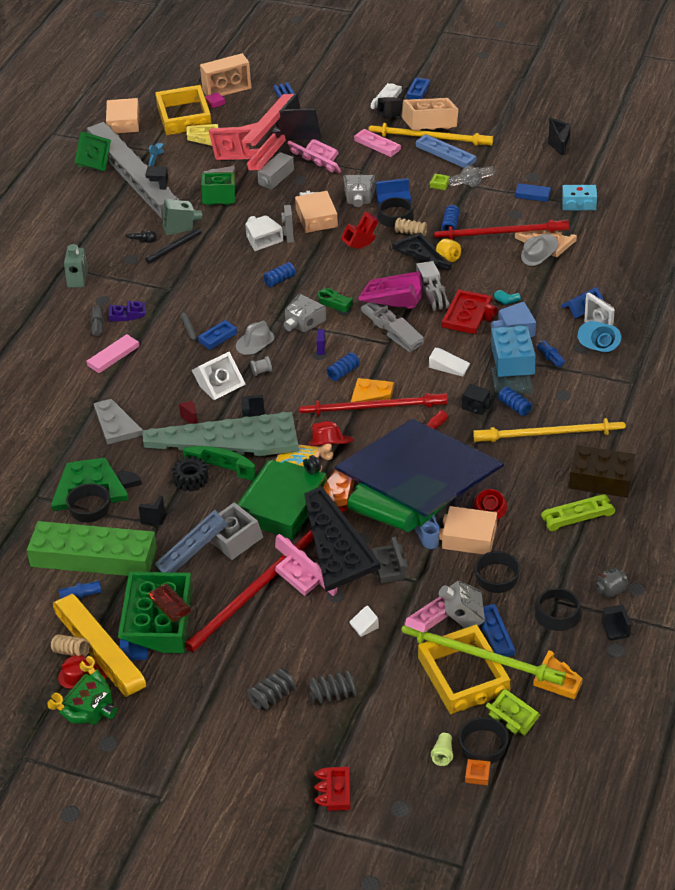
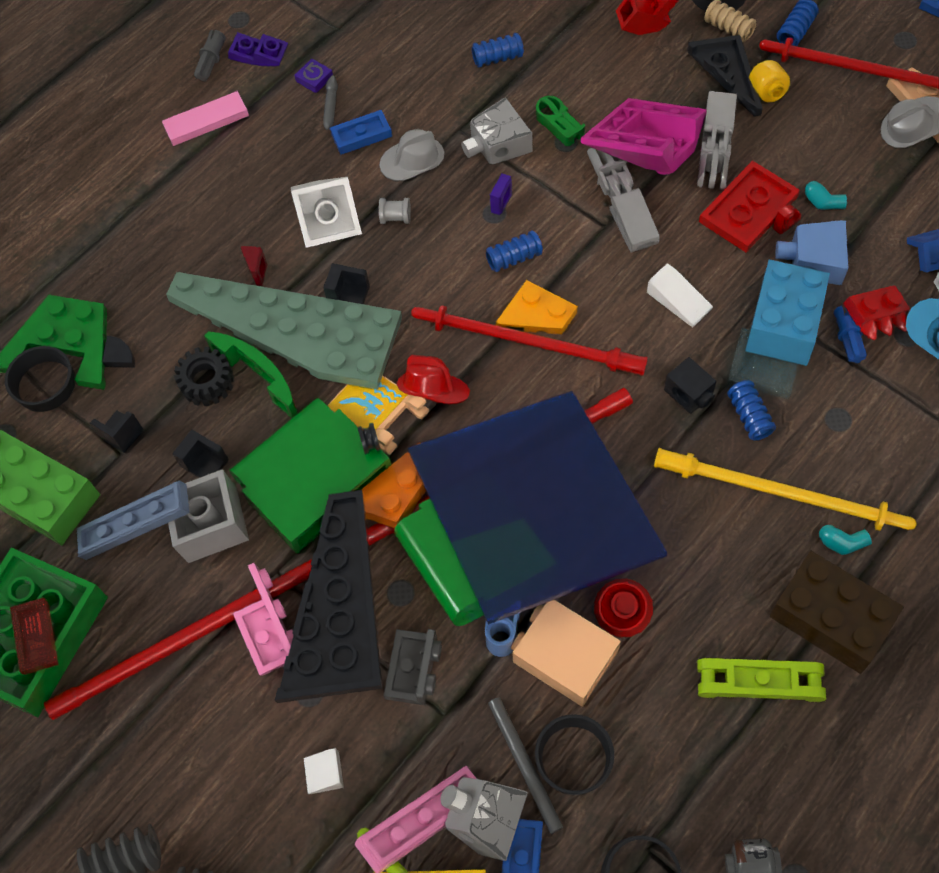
camera: 25 degrees right, 20 degrees up
(115, 422) = (149, 242): light grey wing -> none
(170, 315) = (313, 75): none -> dark purple tile
(208, 504) = (200, 455): none -> black panel
(485, 594) = (525, 765): none -> dark grey bar
(561, 339) = (878, 310): none -> red plate
(589, 442) = (842, 542): none -> teal arm

